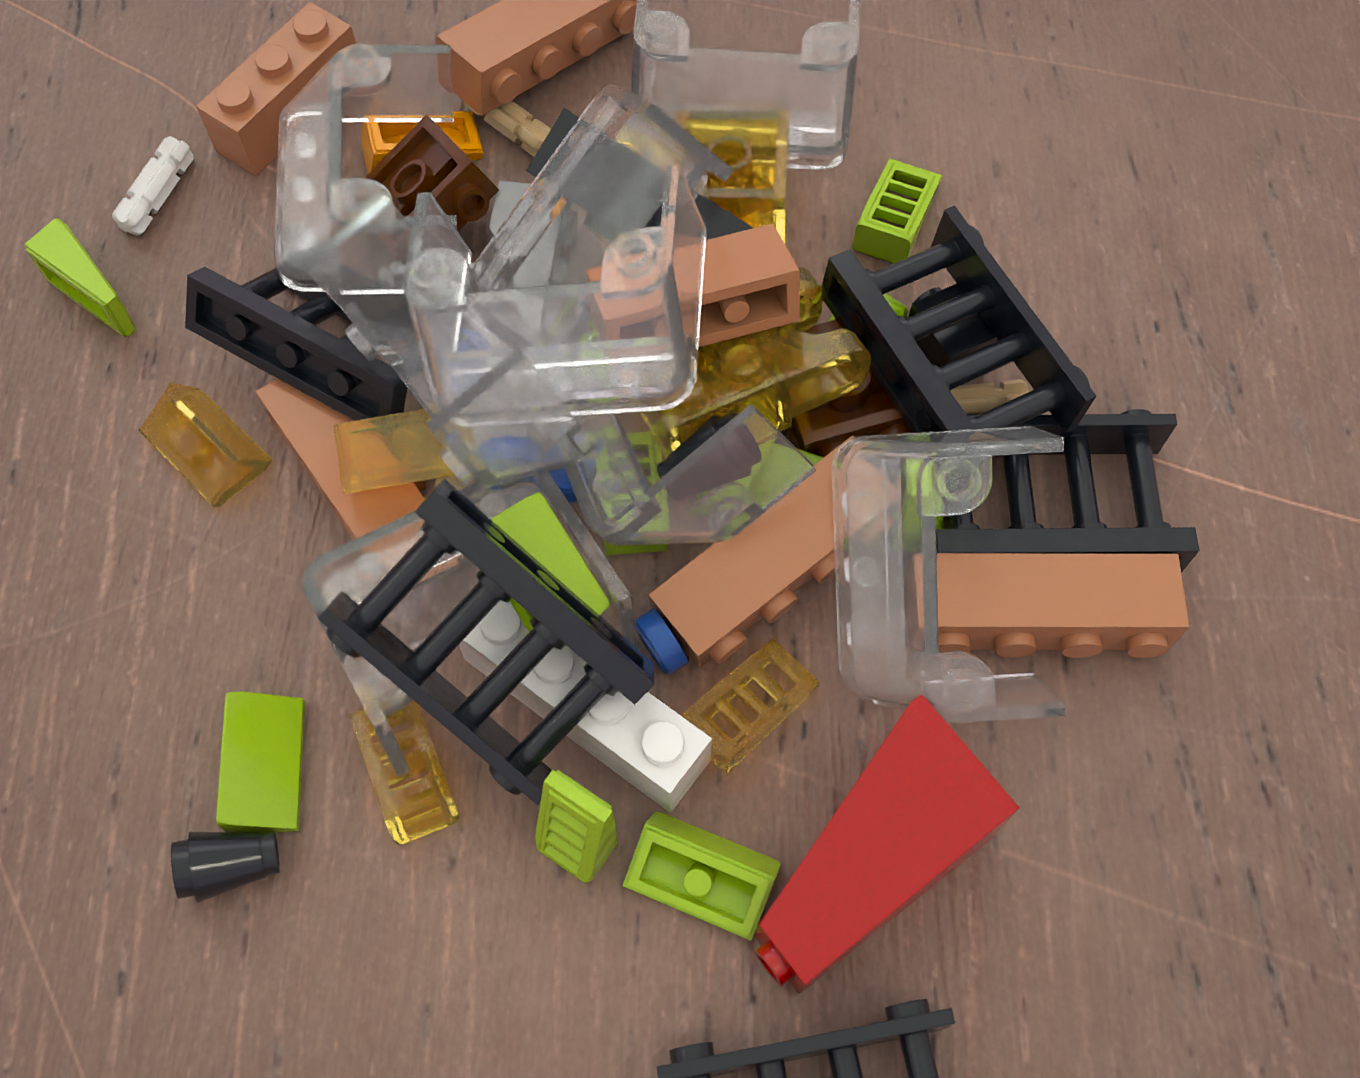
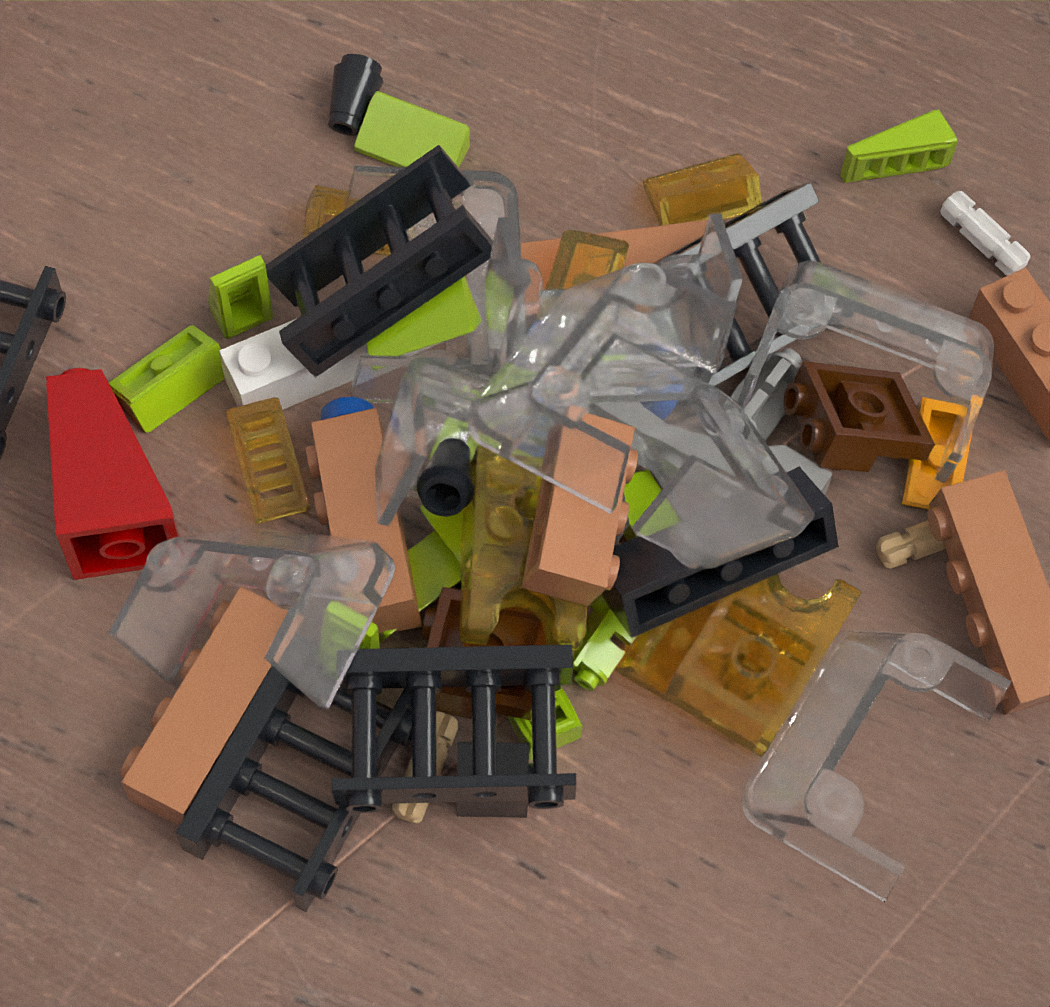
camera: 115 degrees right, 0 degrees up
(886, 240) = (657, 790): lime slope -> none

